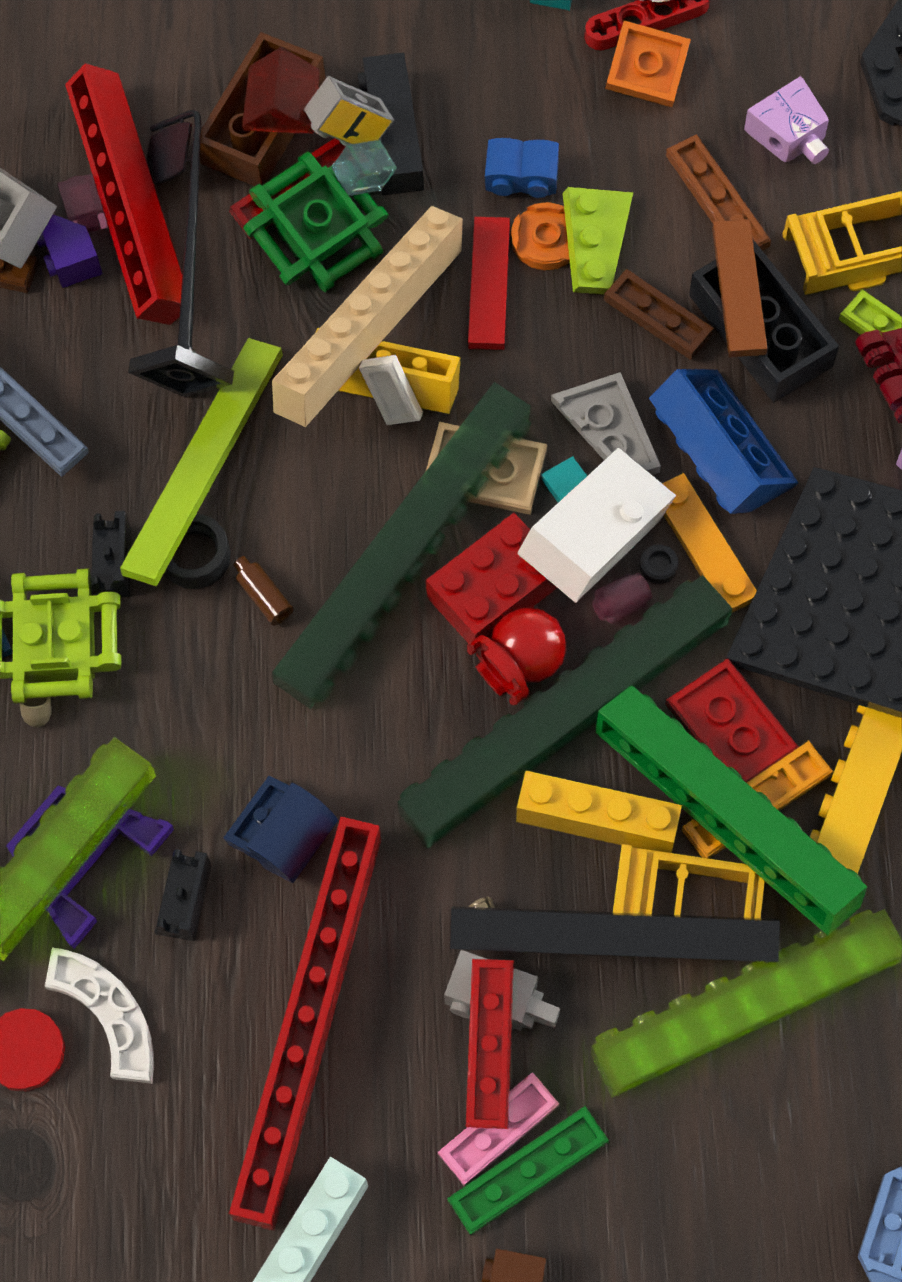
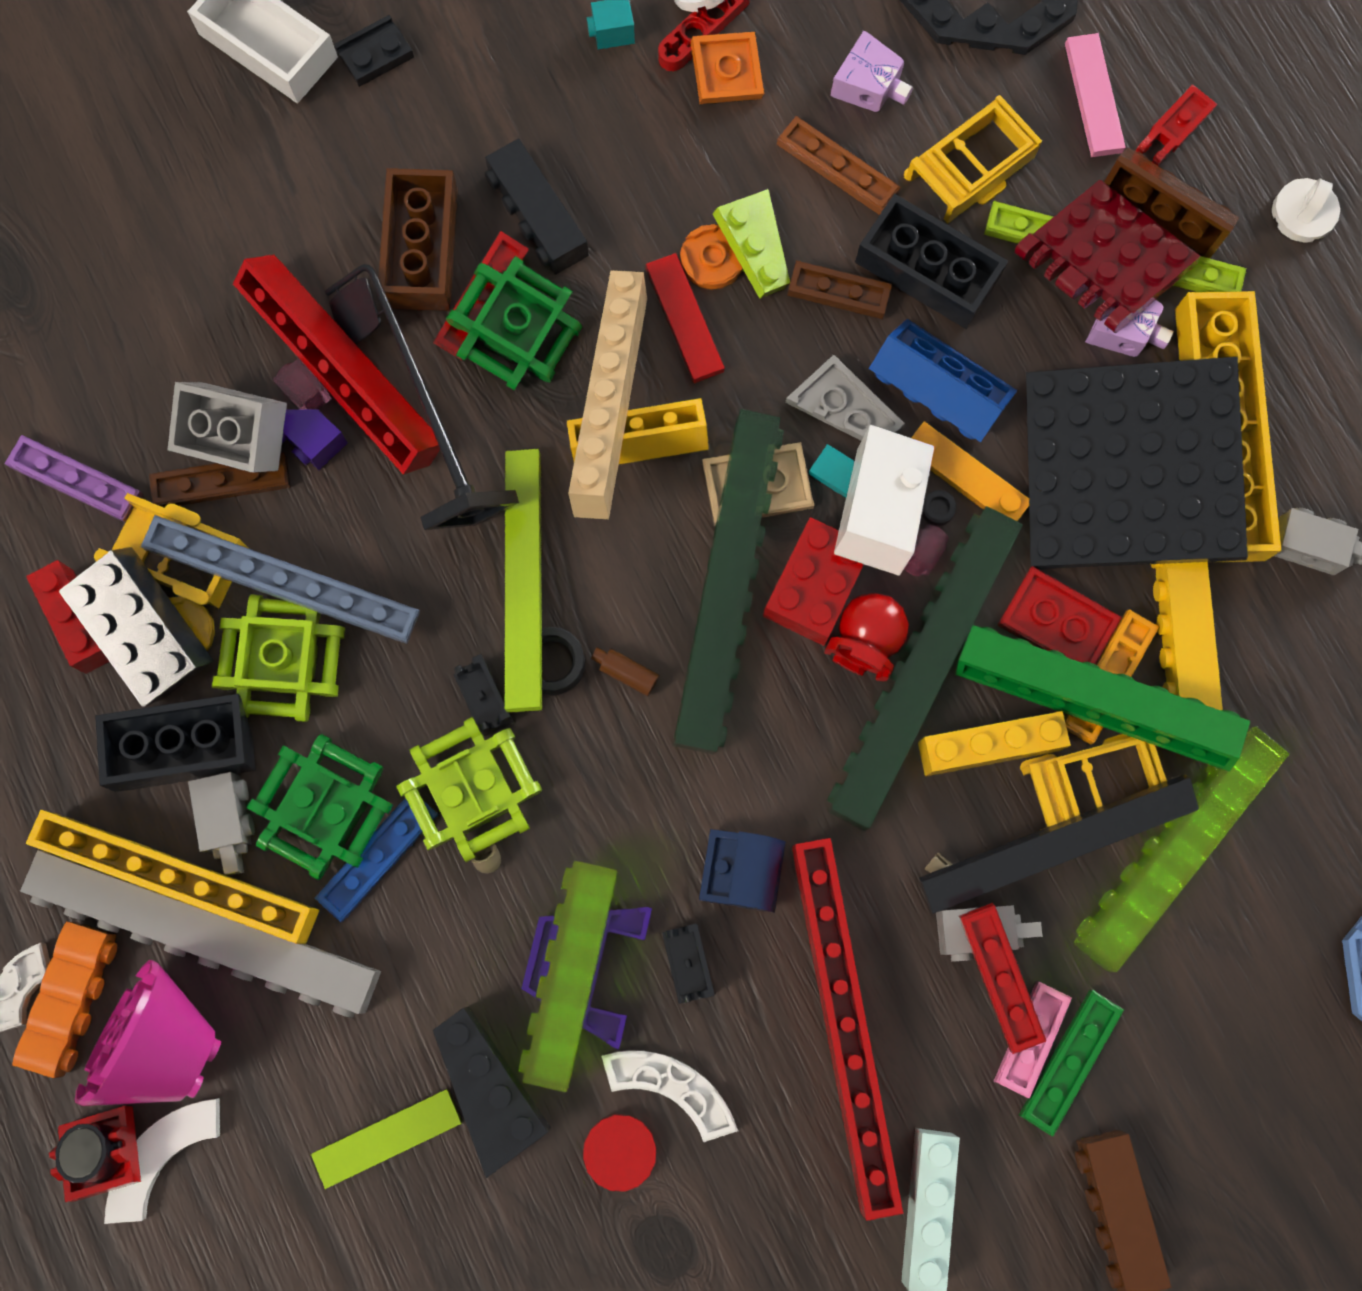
camera: 30 degrees left, 10 degrees up
(278, 93) = (434, 220): clear red slope -> none
(347, 113) = (503, 216): brick -> none
(364, 167) = (538, 259): clear light blue brick -> none
(391, 390) = (655, 450): white tile -> none
(522, 167) = (665, 203): blue brick -> none
(739, 288) = (906, 242): dark orange tile -> none

